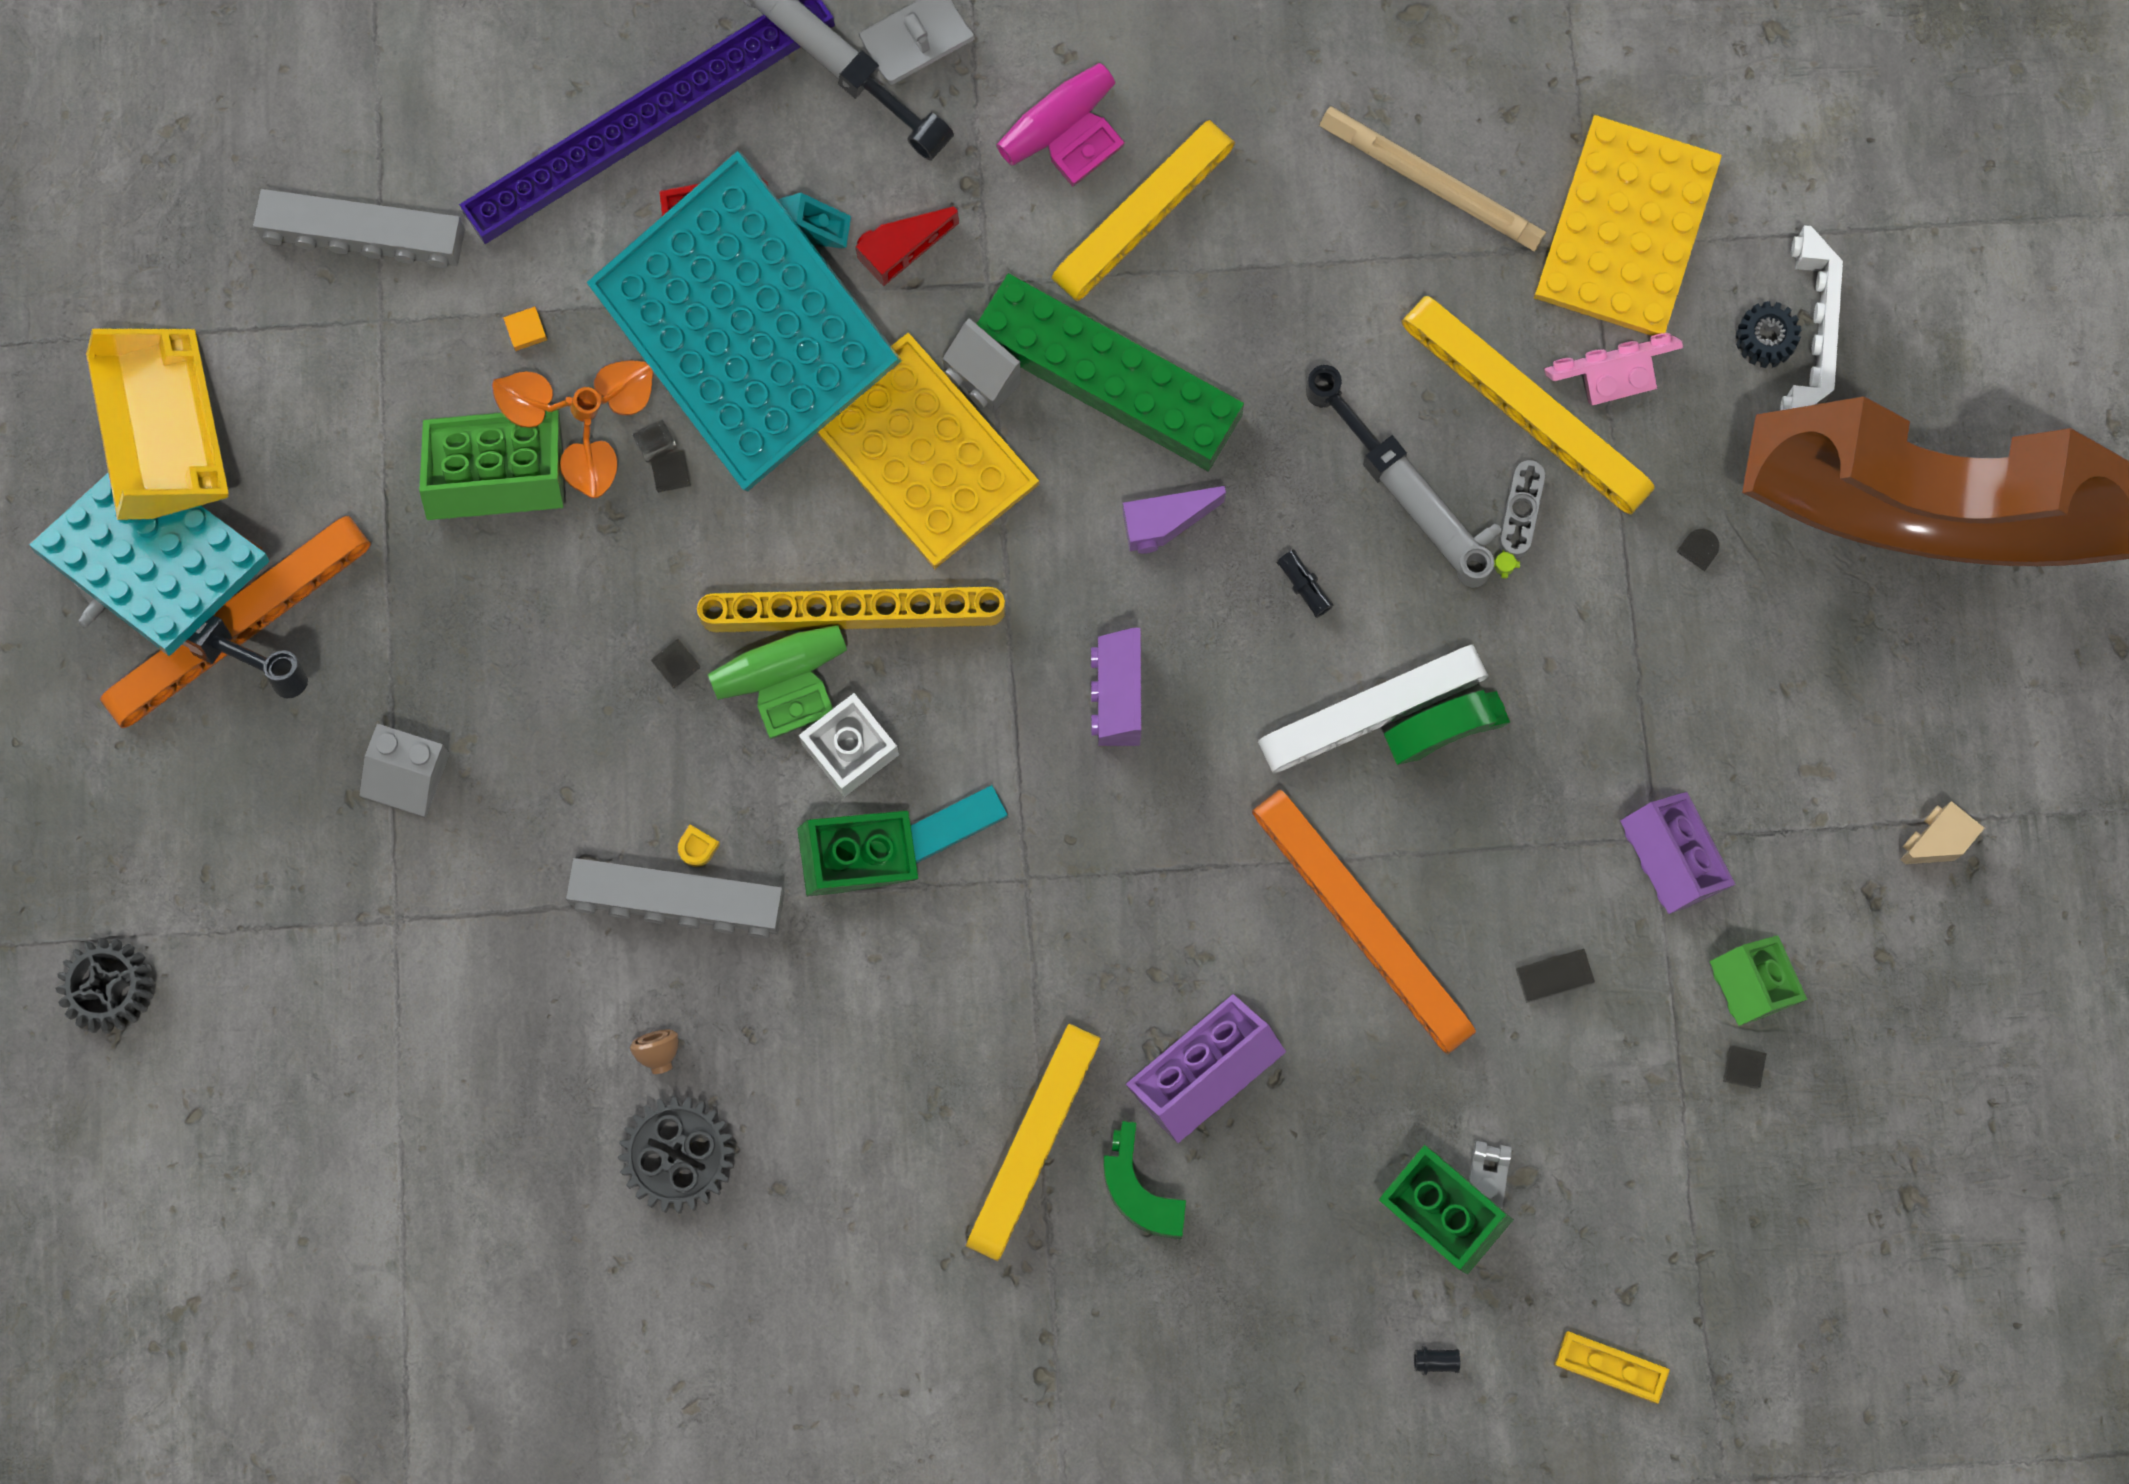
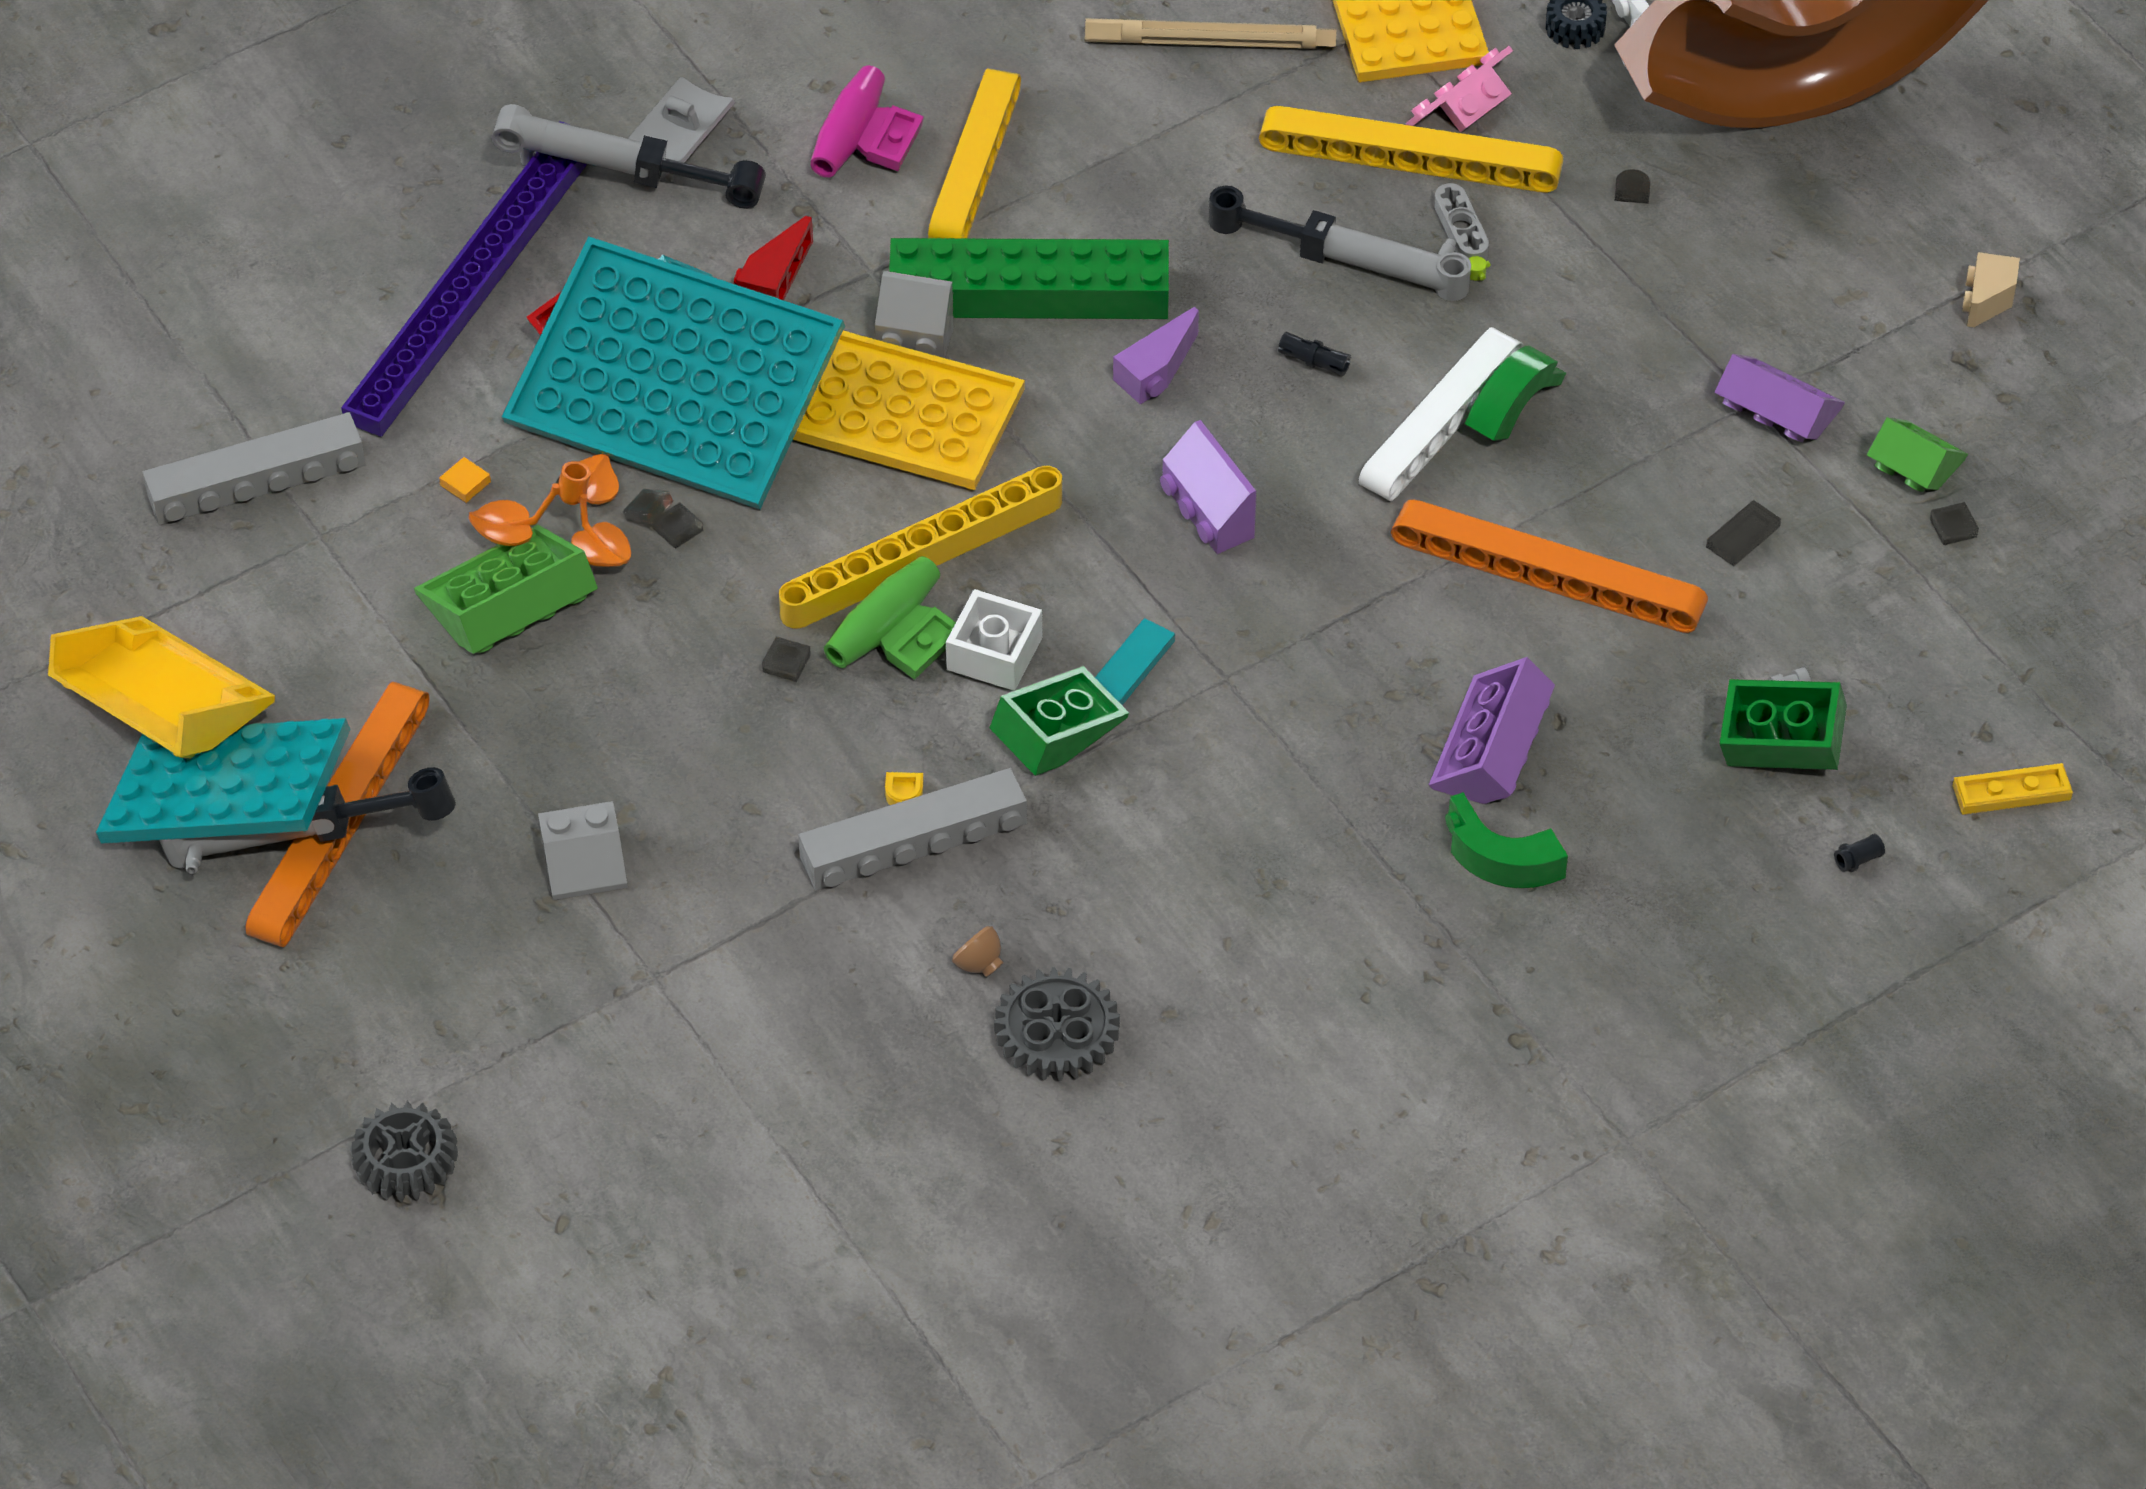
camera: 30 degrees left, 25 degrees down
(1033, 1142) = (1379, 861): yellow beam -> none

